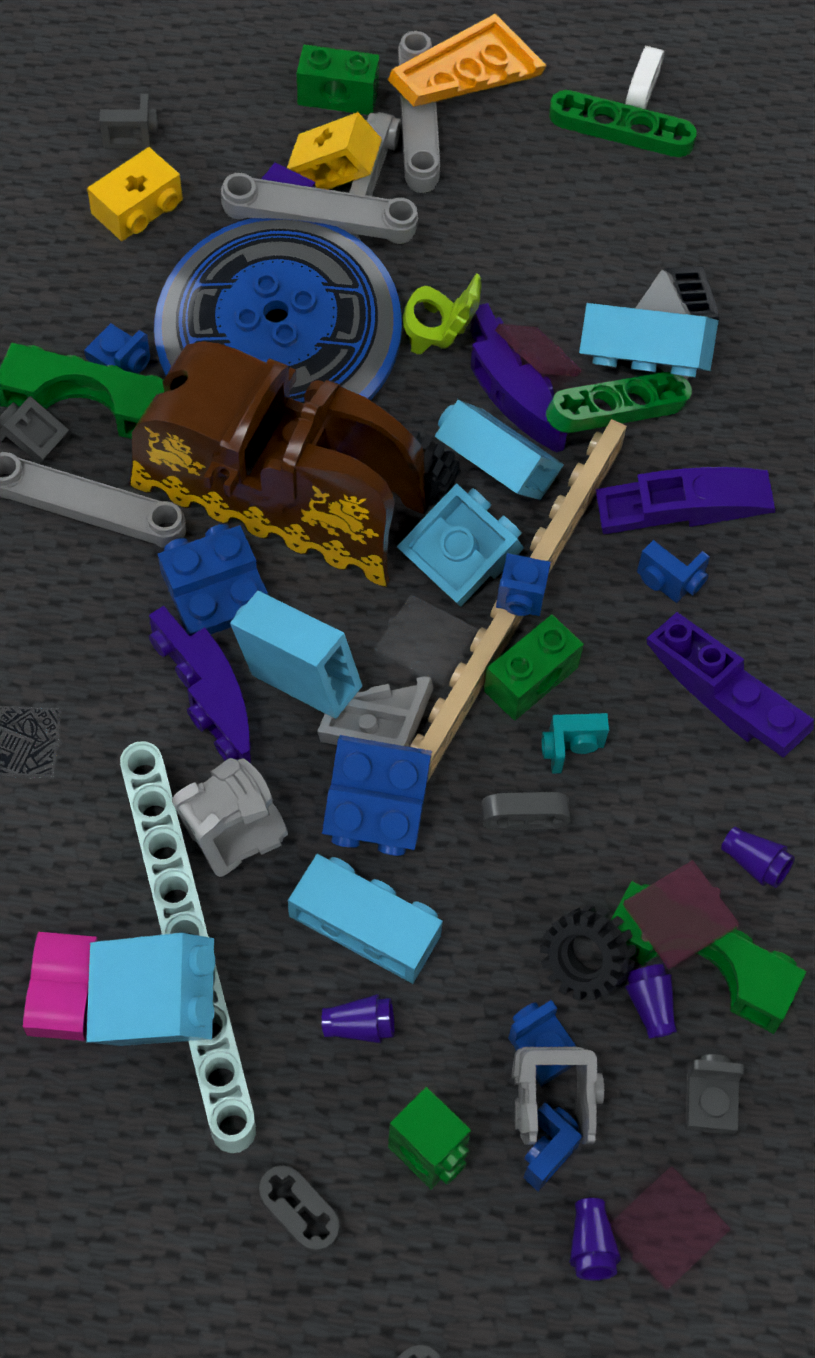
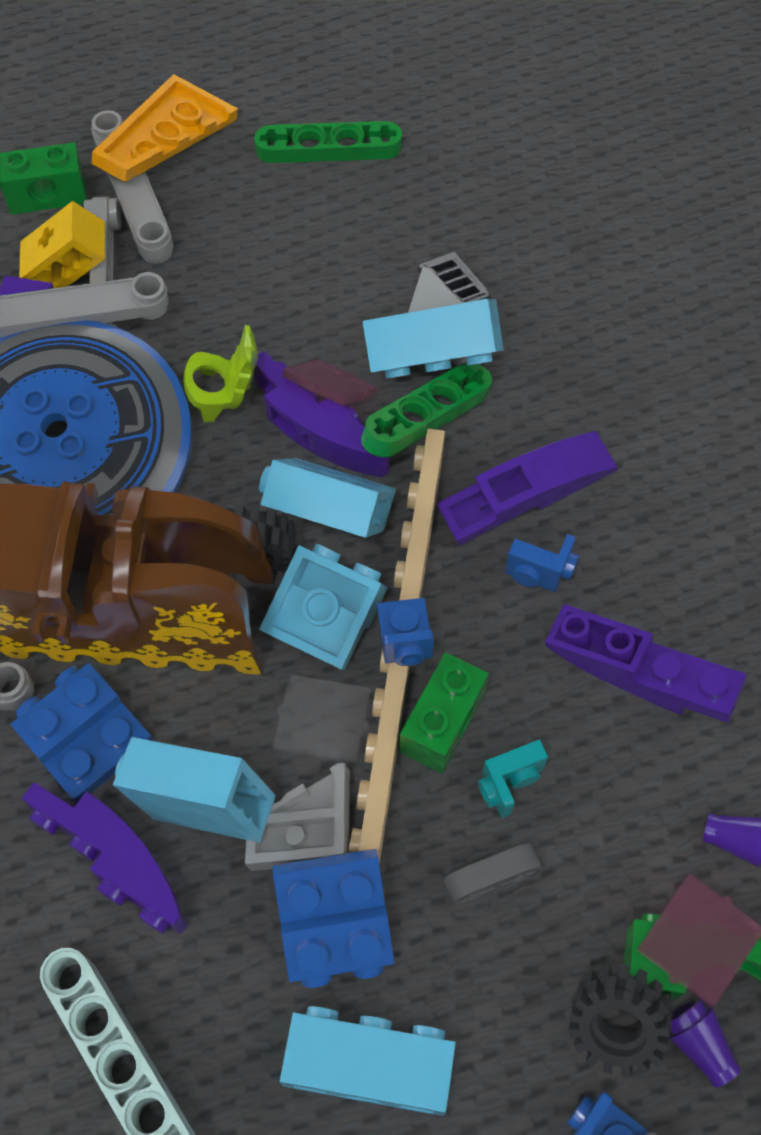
camera: 15 degrees left, 0 degrees up
(231, 815) = (184, 1003): light grey piece -> none
(645, 77) = (334, 93): white beam -> none

